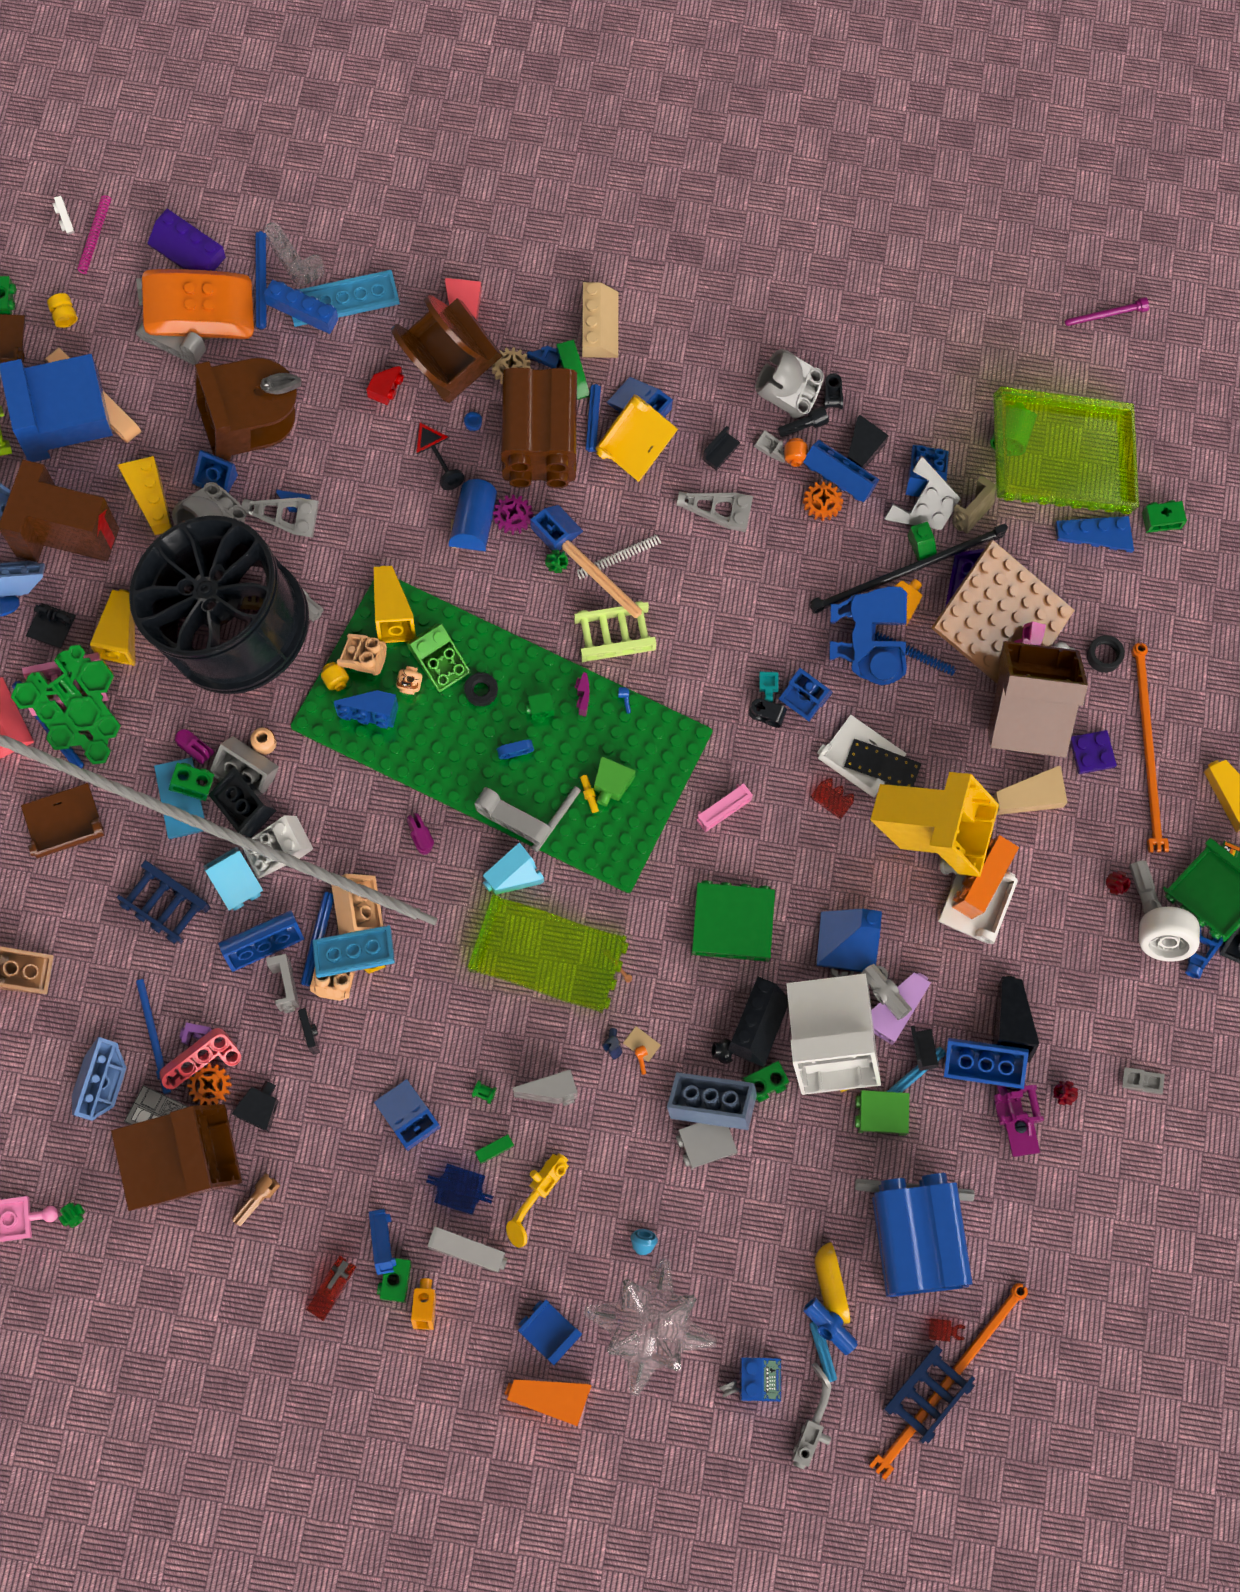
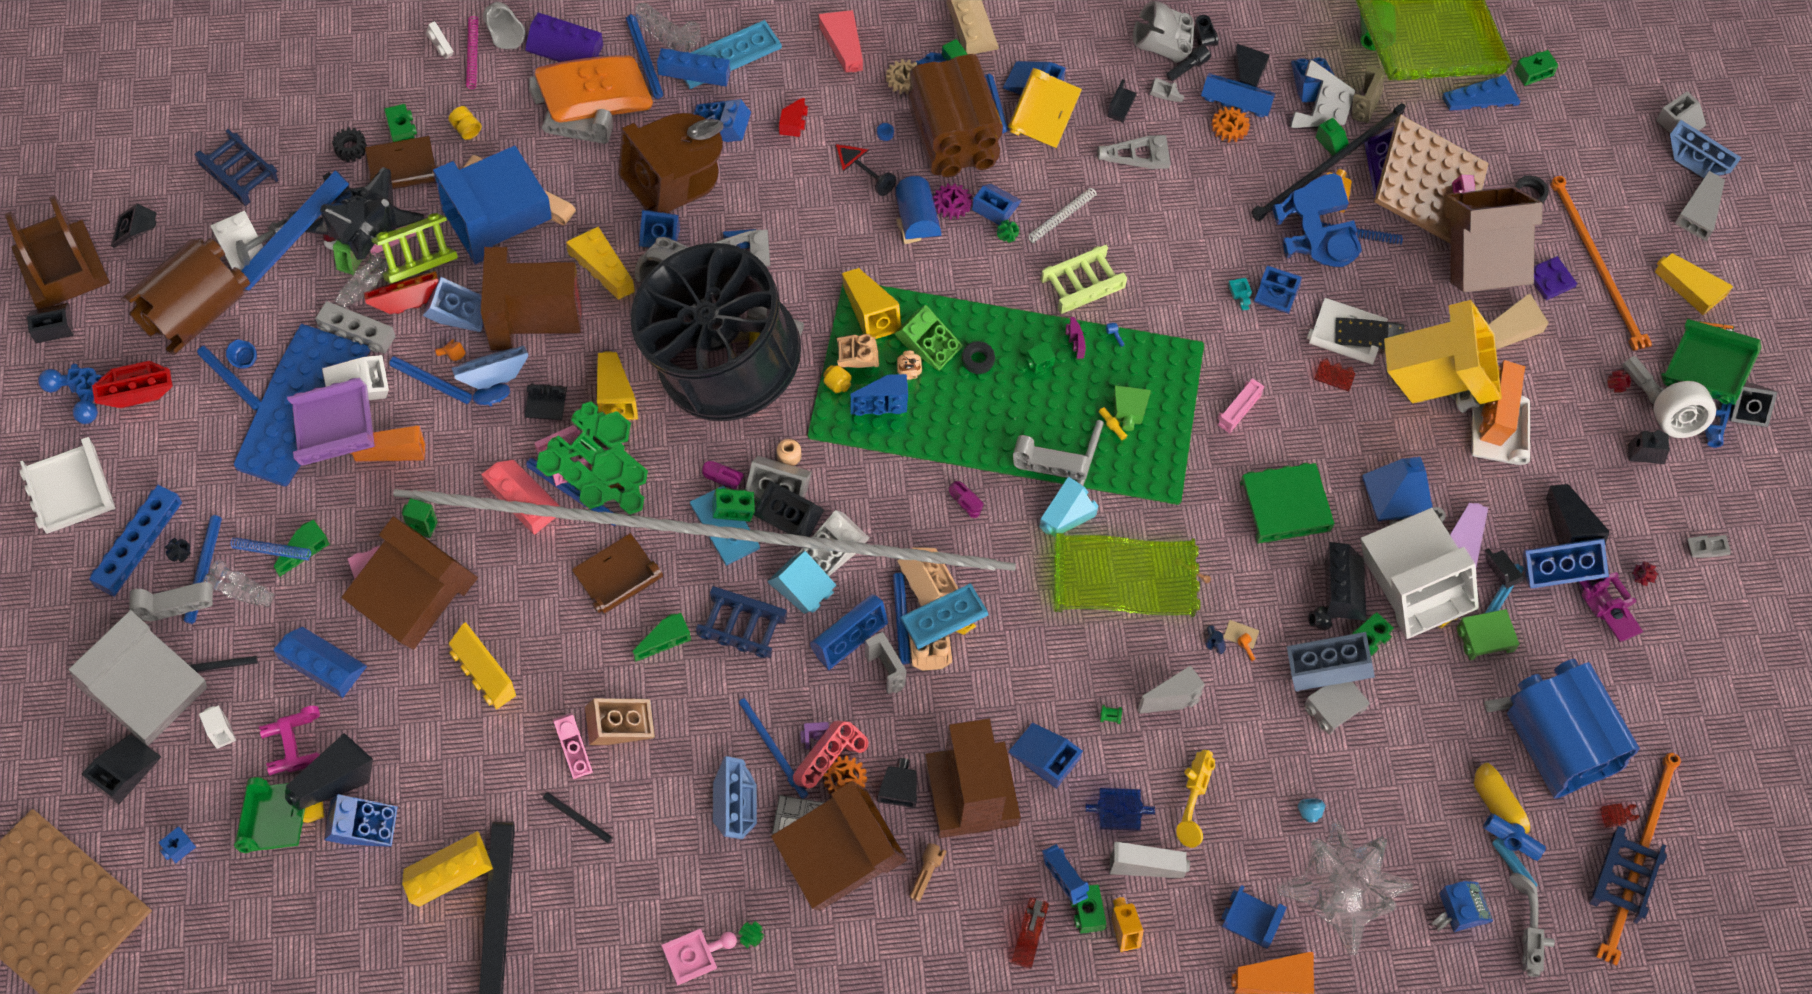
camera: 15 degrees left, 10 degrees down
(86, 896) = (665, 635): none -> green slope
(131, 214) = (503, 26): none -> light grey hair
(310, 1031) = (926, 700): black plate -> none
(316, 369) = (733, 115): none -> blue slope
(324, 1128) = (971, 782): none -> reddish brown piece
(448, 346) = (845, 69): reddish brown piece -> none
(494, 1149) = (1141, 762): green piece -> none
(515, 749) = (1030, 401): blue beam -> none
(602, 579) = (1057, 235): light nougat axle -> none
(770, 713) = (1251, 314): black piece -> none
(795, 451) = (1191, 88): orange head -> none
(886, 992) = (1456, 525): light grey piece -> none
(1121, 962) = (1649, 447): none -> black torso

